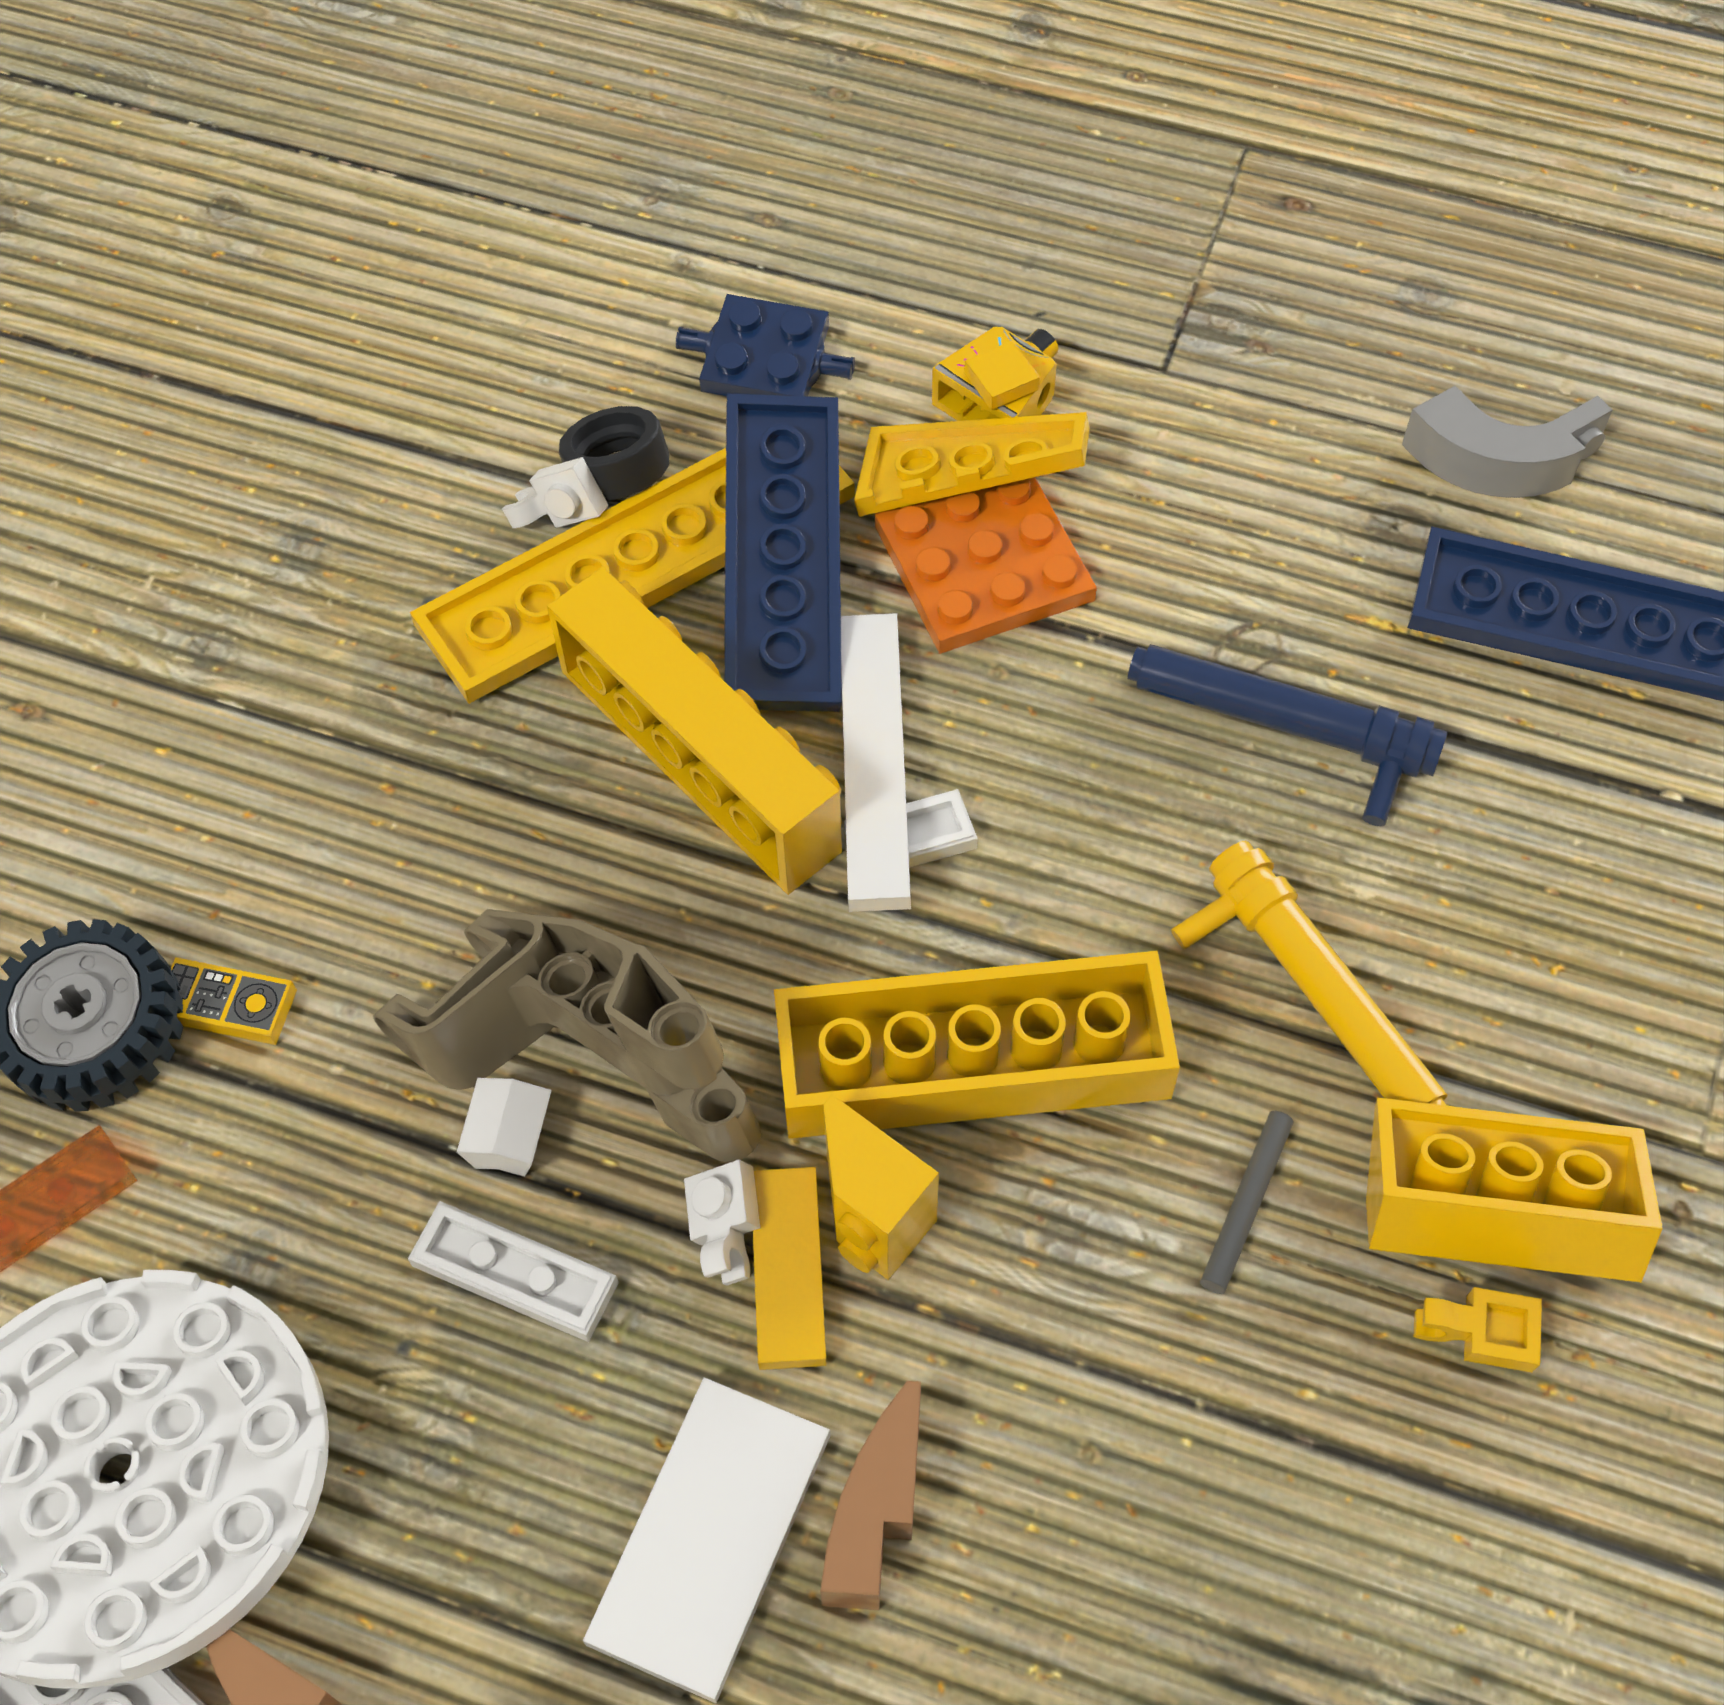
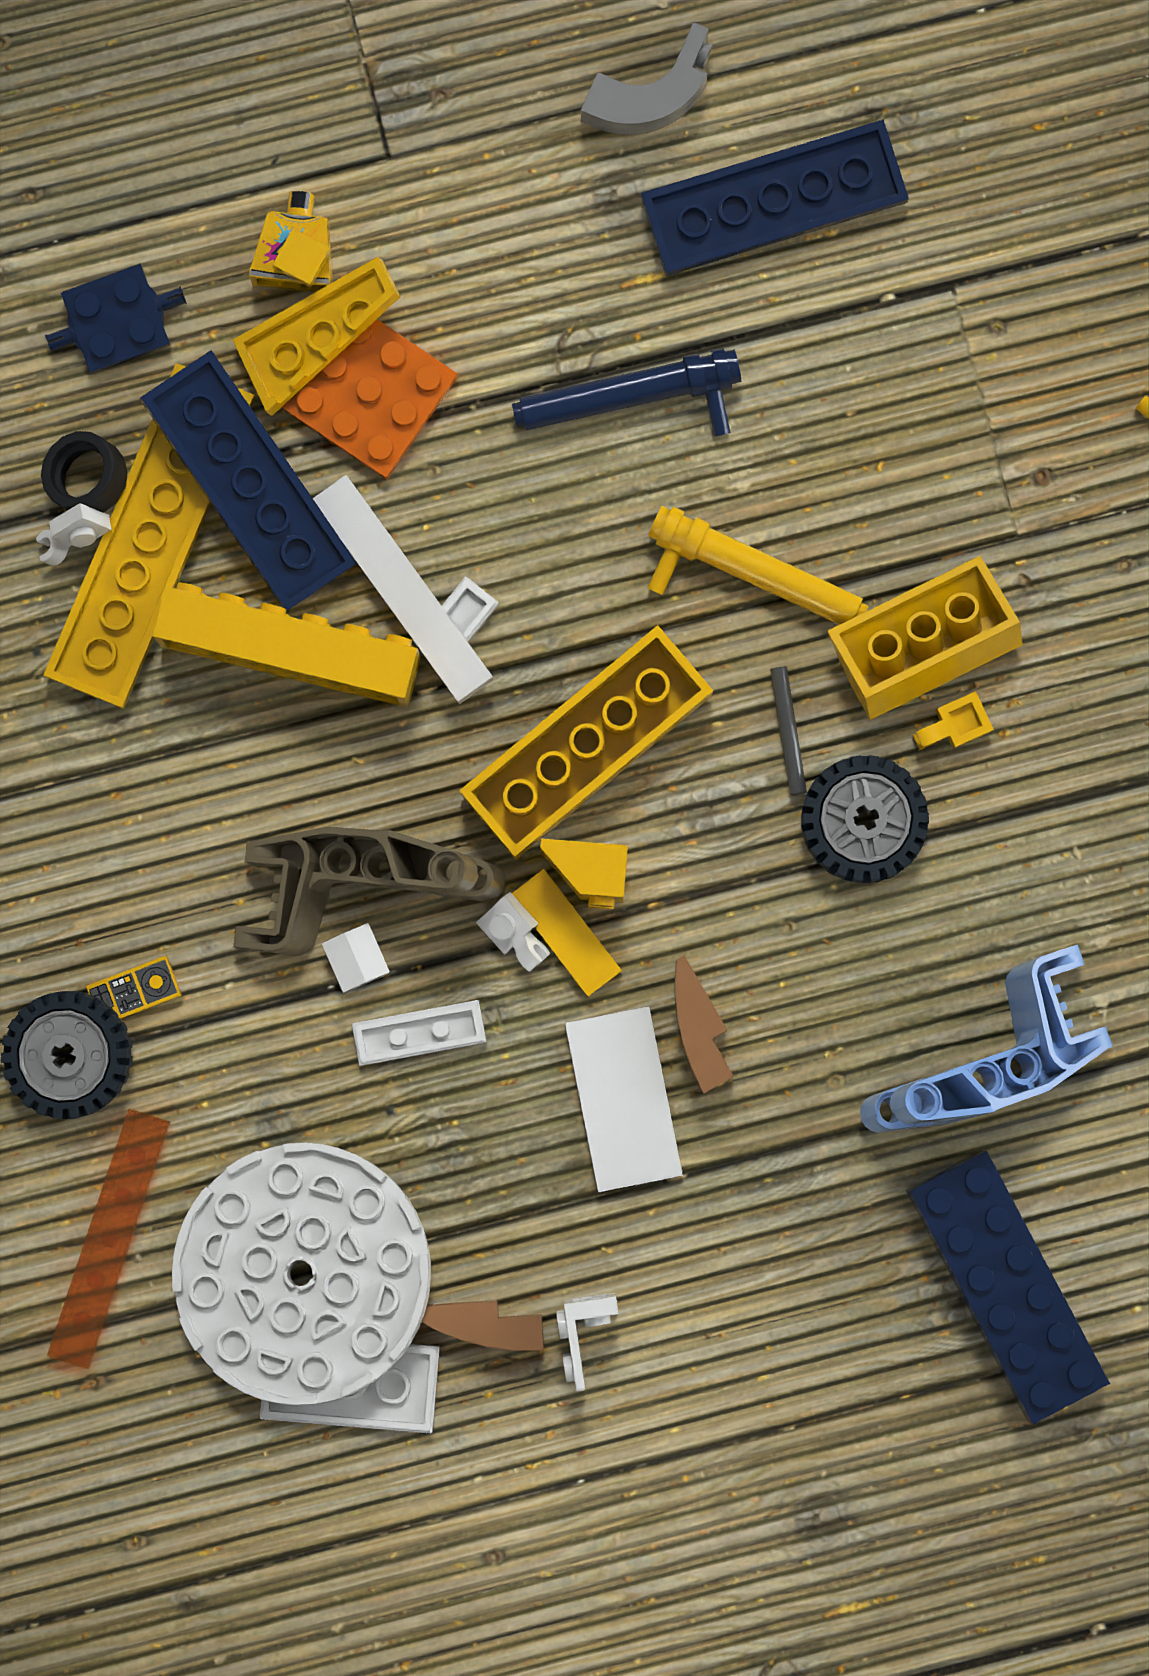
camera: 35 degrees left, 25 degrees up
(1241, 1392) = (876, 788): none -> wheel

